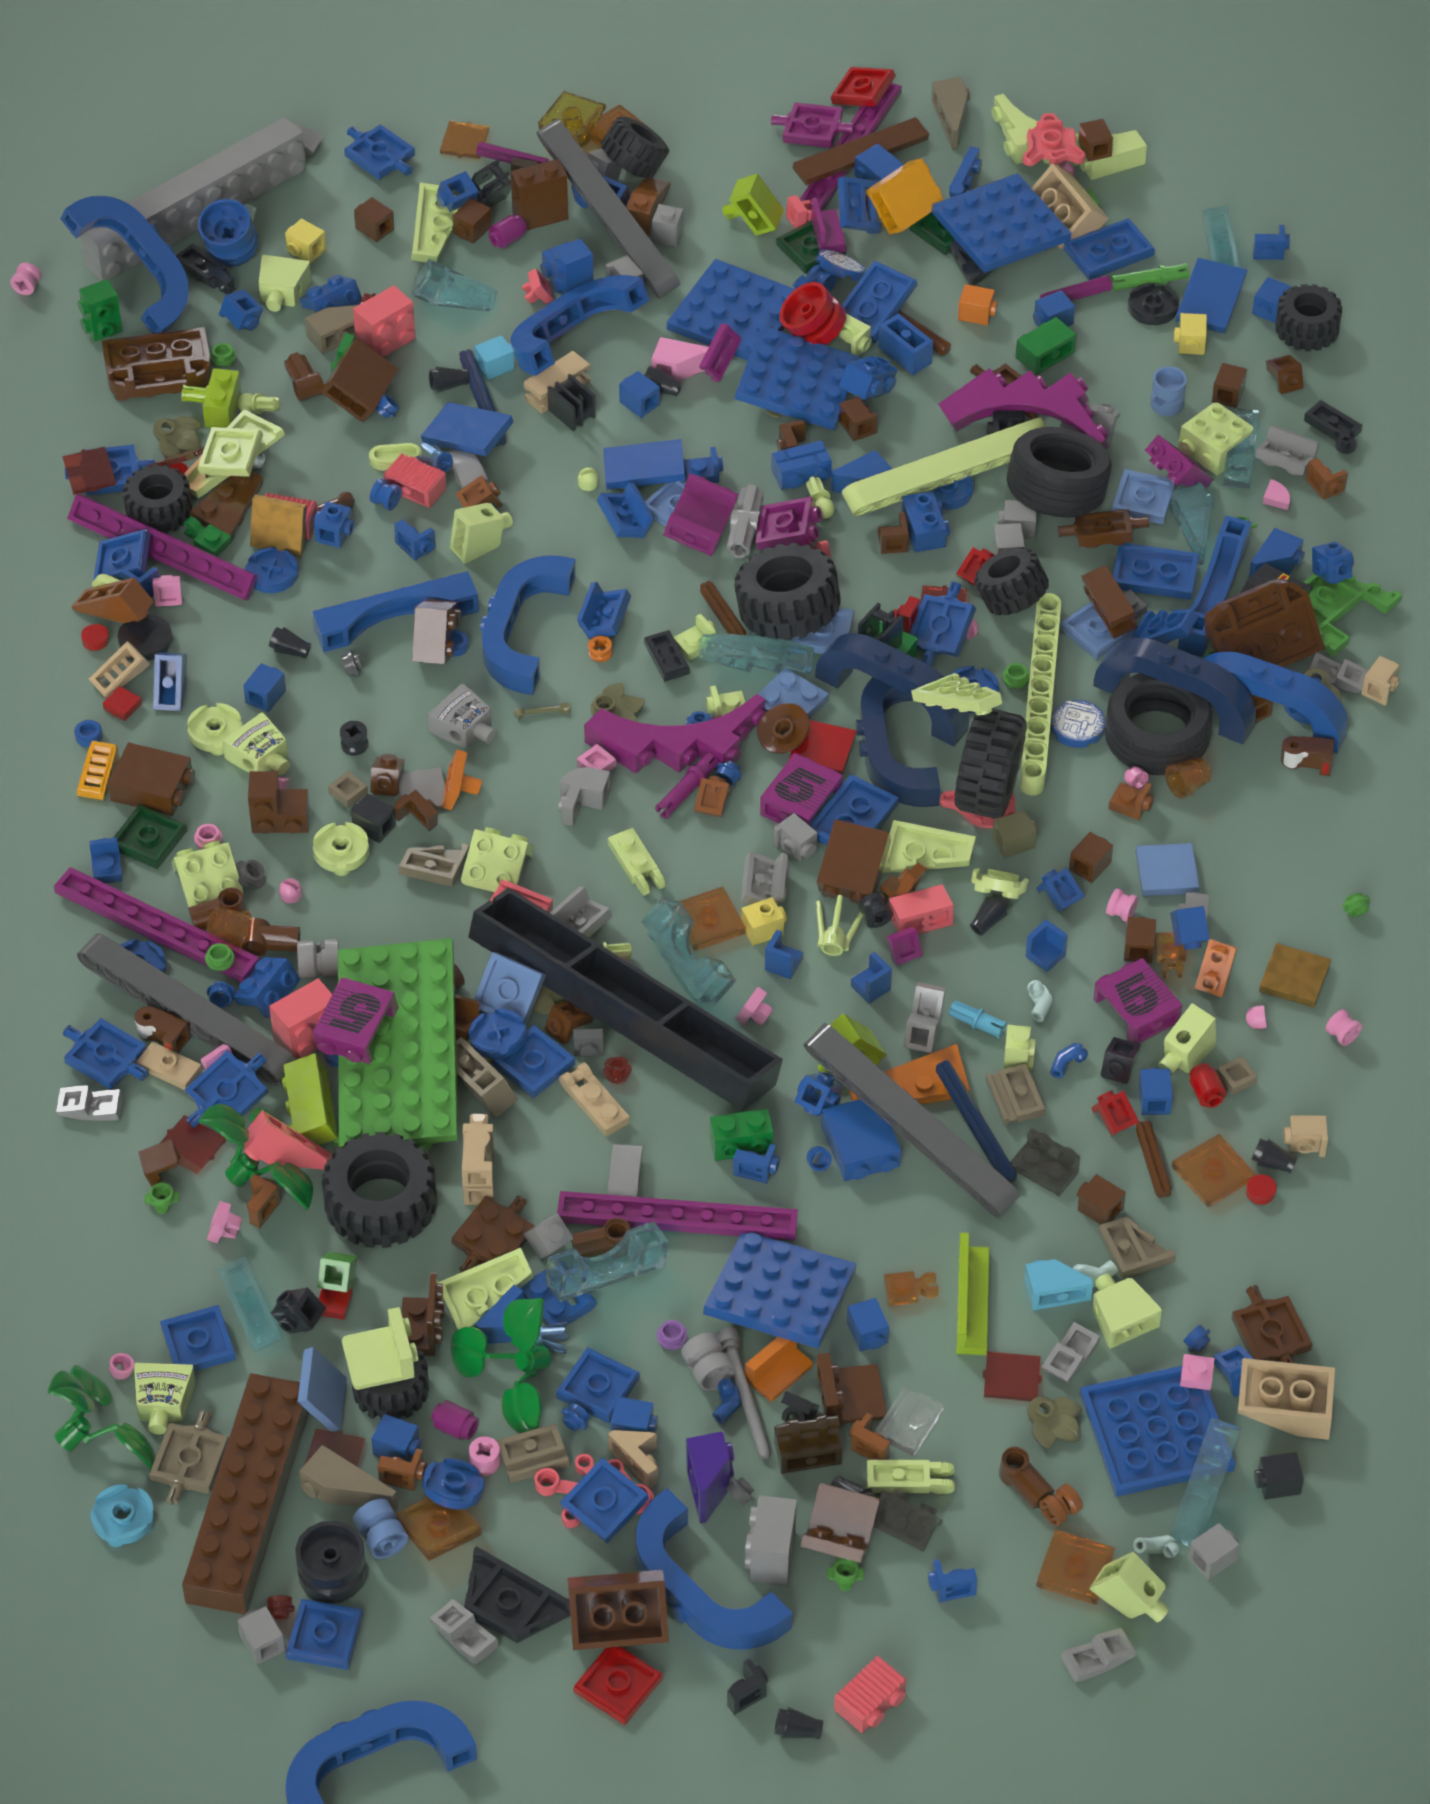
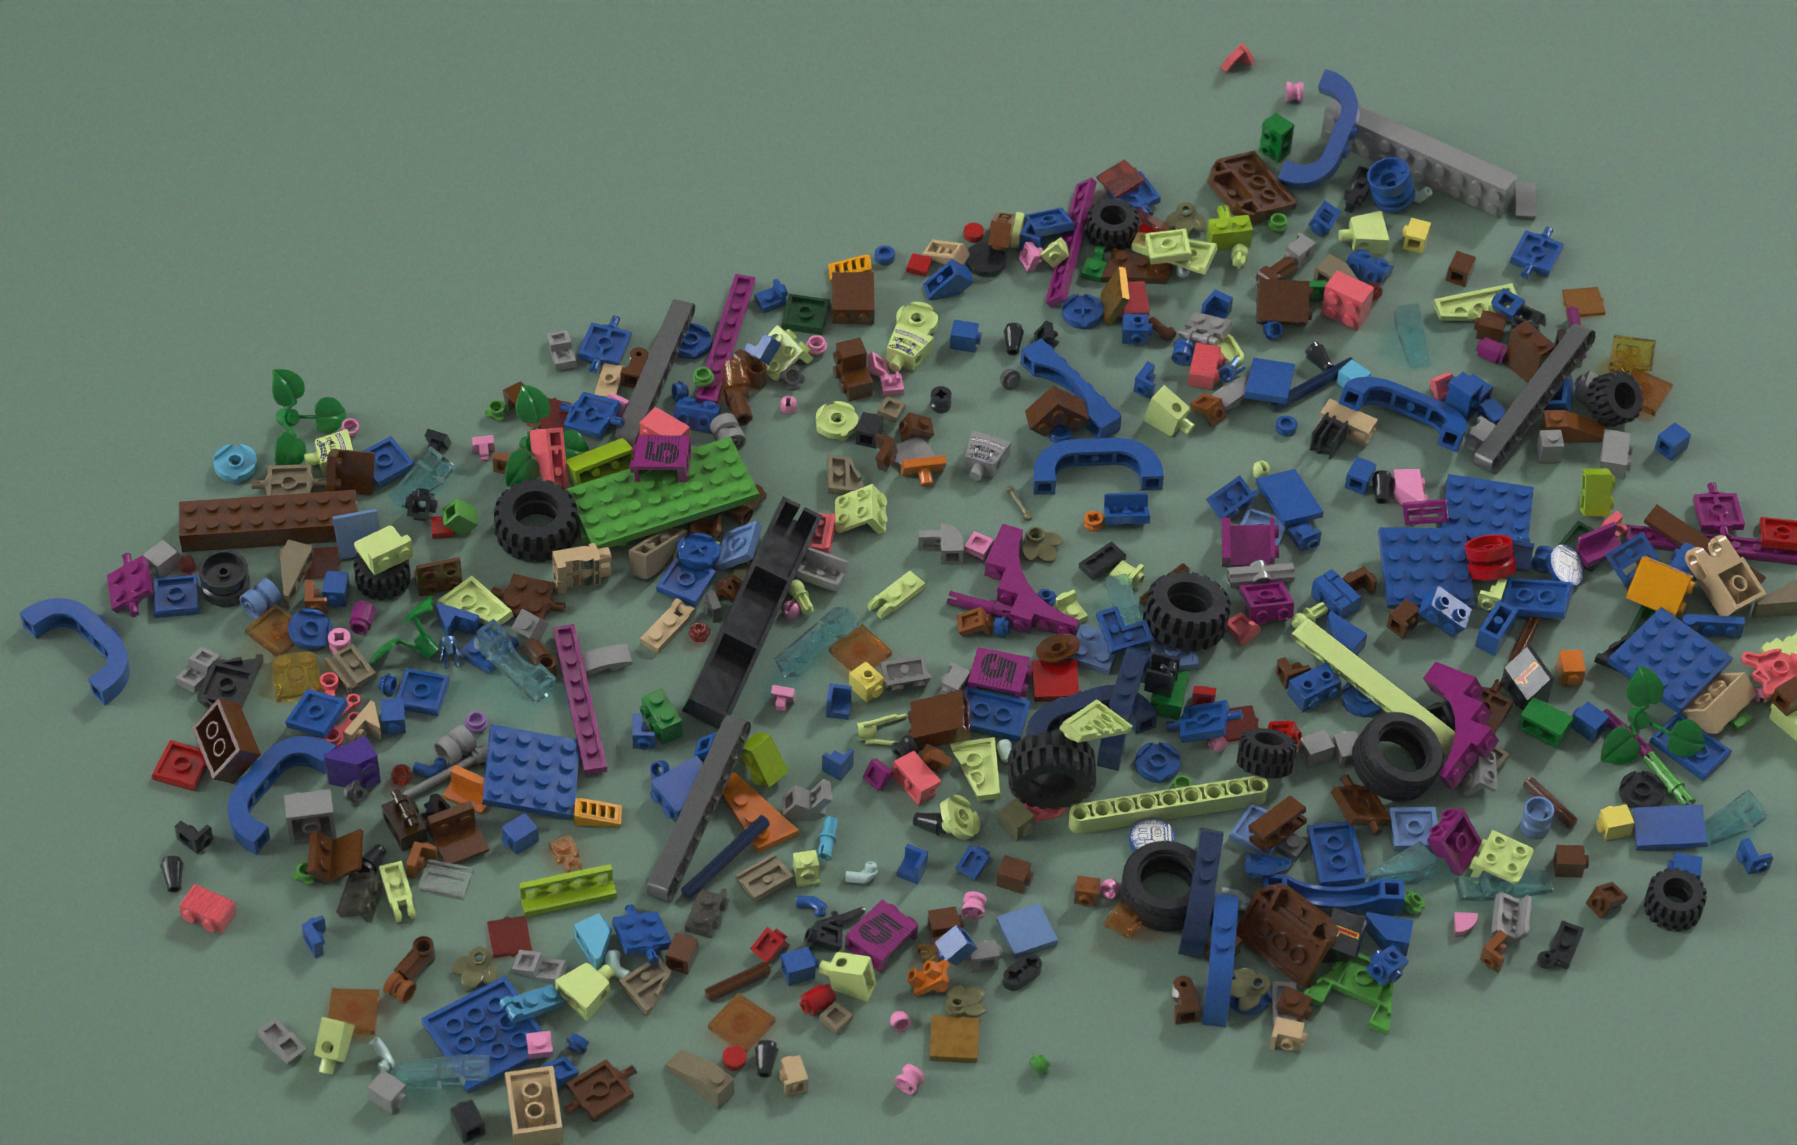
camera: 70 degrees right, 0 degrees up
(176, 563) = (1055, 252): none -> yellowish green bracket
(190, 1273) = (437, 440): none -> black tile
(203, 882) = (764, 350): none -> blue panel
(210, 1377) = (350, 471): none -> reddish brown bracket
(277, 345) = (1300, 250): none -> light grey brick
(292, 1679) = (130, 584): none -> magenta plate
(300, 612) = (1047, 333): none -> black tile
(305, 778) = (891, 384): none -> bright pink tile
(327, 445) = (1217, 304): none -> blue panel
(355, 460) = (1205, 329): none -> light grey plate
(521, 1520) = (294, 675): none -> clear yellow slope
(532, 439) = (1286, 425): none -> blue tile
(602, 255) = (1491, 411): none -> blue brick
(698, 179) = (1615, 452): none -> light grey brick
(701, 128) = (1672, 441): none -> blue brick
(731, 1428) = (401, 770): none -> clear red plate
(795, 662) = (1120, 637): none -> blue plate
(859, 1257) = (590, 806): none -> light orange slope
(918, 137) = (1724, 576): none -> tan brick
(919, 818) = (1003, 749): none -> light aqua arm
(987, 338) = (1527, 678): none -> slope
(1061, 1232) = (641, 933): none -> blue plate
(1069, 270) = (1643, 690): none -> green plant
(1095, 1040) = (837, 919): none -> black piece
(1132, 1366) = (532, 1003): none -> dark azure plate
(1134, 381) = (1560, 810): none -> reddish brown axle
(1229, 886) = (1024, 975): none -> black beam
(1252, 950) = (965, 1001): none -> olive plate
(1283, 1223) = (702, 1077): none -> dark tan slope
(1348, 658) = (1295, 1004): none -> reddish brown bracket

